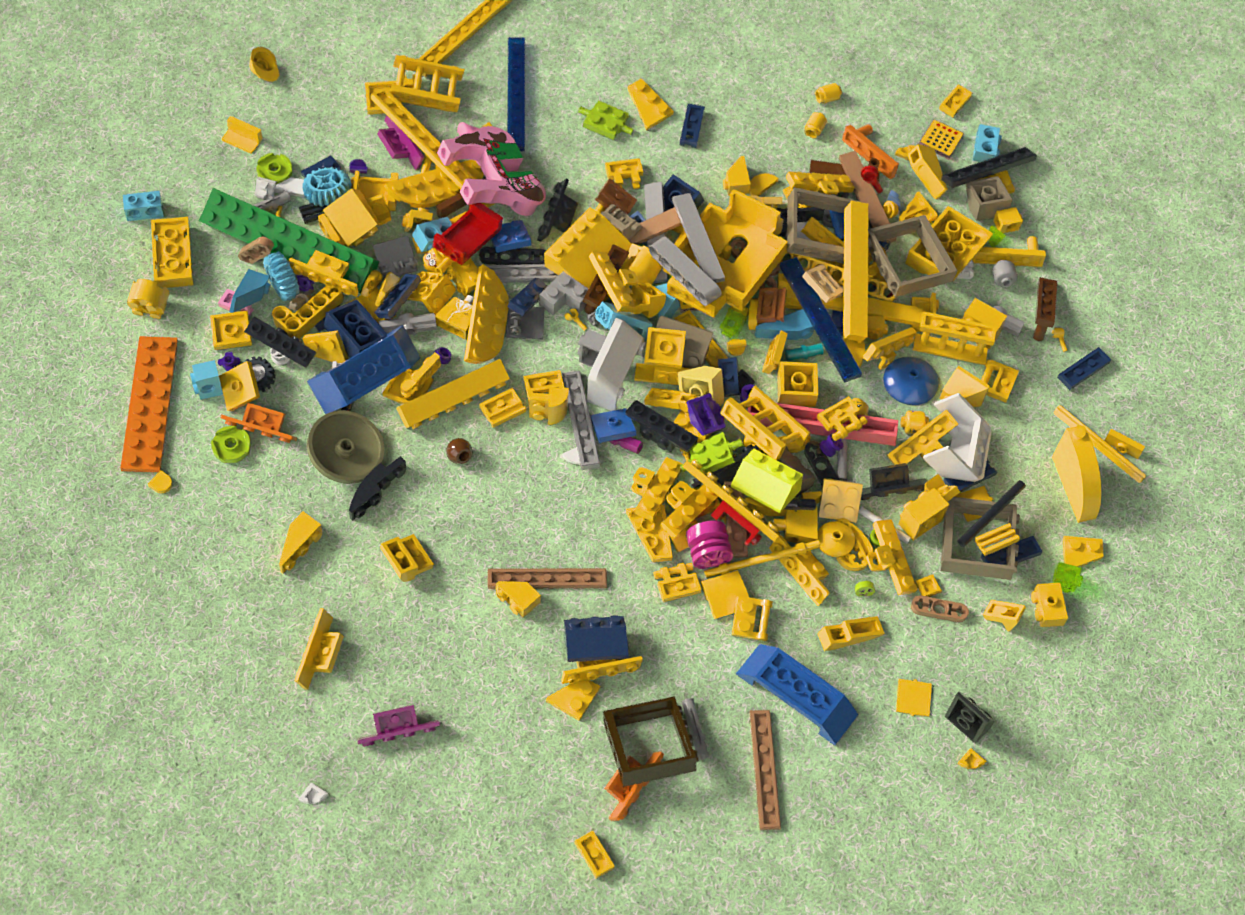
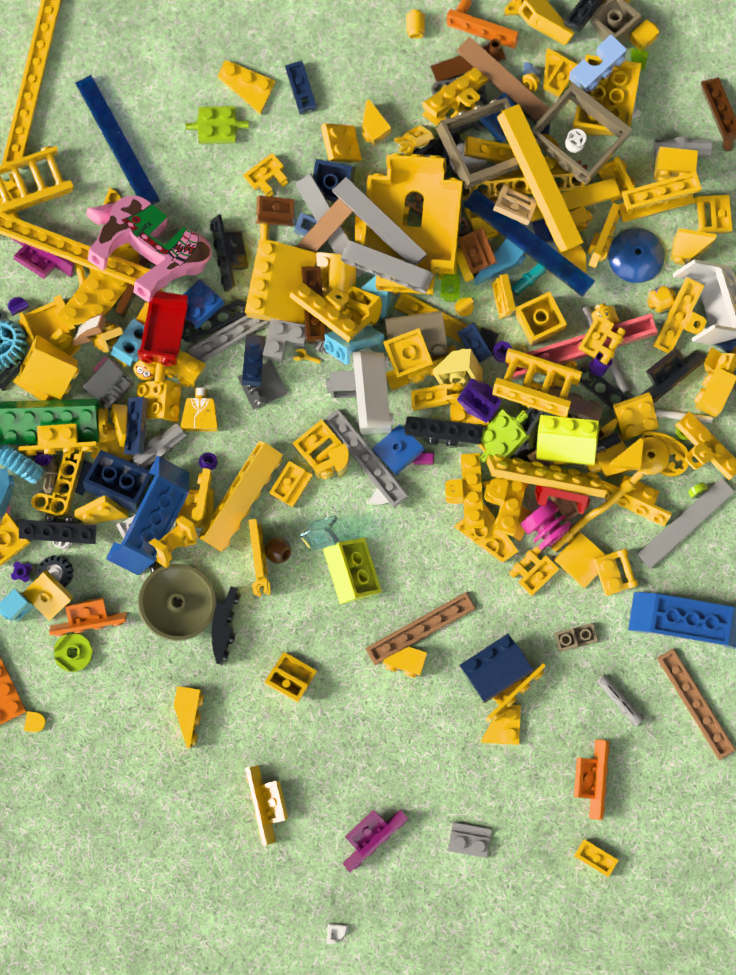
camera: 15 degrees left, 20 degrees up
(375, 397) = (181, 536): none -> yellow piece
(404, 207) = (92, 326): none -> medium nougat slope
(437, 448) = (259, 559): none -> yellow tile
(485, 778) = (469, 840): none -> light grey plate
(487, 318) = (227, 402): yellow plate -> none
(502, 455) = (319, 533): none -> clear light blue panel
(514, 499) = (352, 570): none -> neon yellow slope
(626, 225) = (294, 235): dark tan hinge -> none
(643, 712) = (571, 708): dark brown window -> none
(684, 656) = (576, 637): none -> dark tan slope
(702, 176) = (341, 143): none -> yellow plate
(761, 183) = (397, 117): yellow tile -> none
(814, 524) = (630, 458): none -> yellow slope
(838, 612) = (685, 523): none -> light grey tile
(850, 633) = (706, 539): yellow slope -> none
(870, 174) = (497, 58): red plate -> none
(906, 251) = (577, 136): none -> white wheel
(969, 213) = (611, 54): none -> light blue arch
(1004, 273) = (668, 96): light grey head -> none
(1019, 257) = (685, 64): yellow piece -> none

